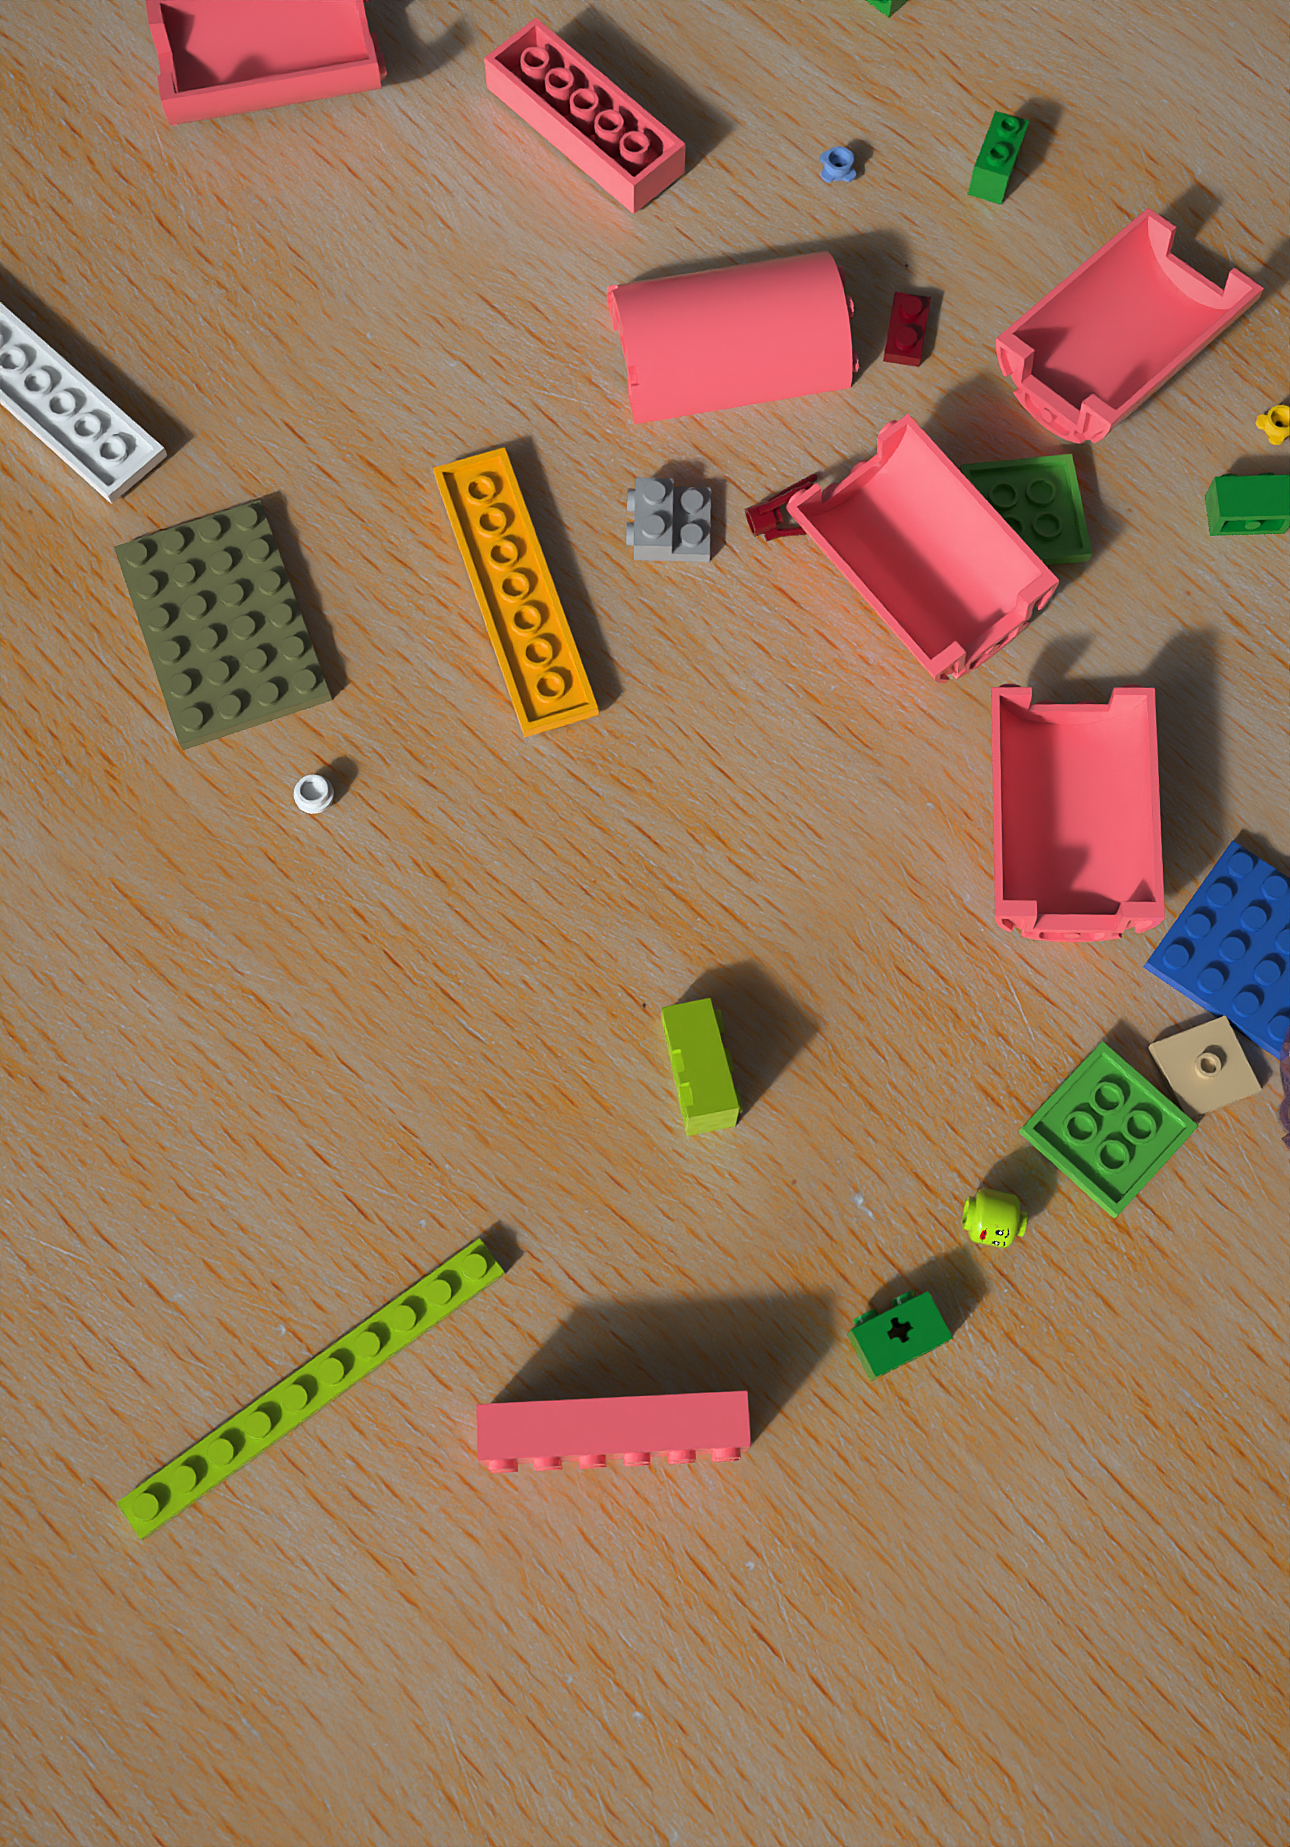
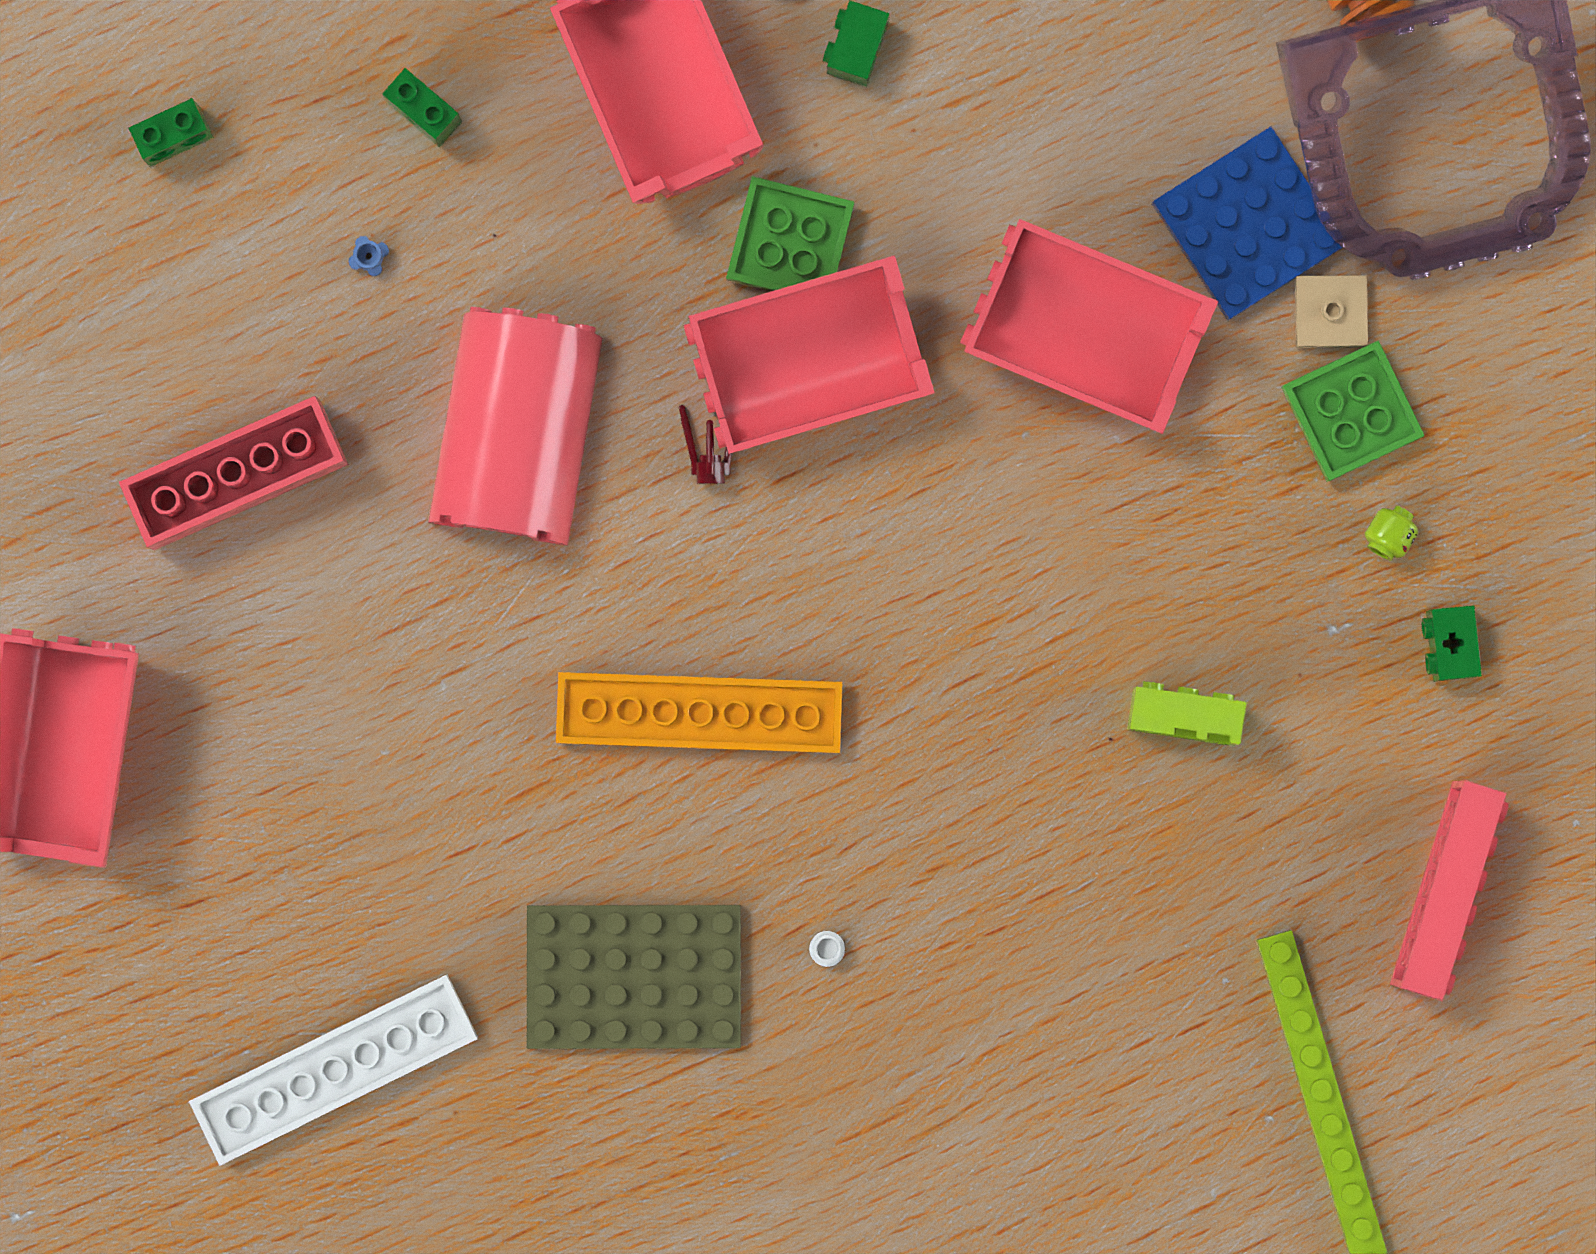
camera: 65 degrees left, 15 degrees up
(669, 521) = (682, 552): light grey plate -> none
(906, 329) = (564, 264): dark red plate -> none

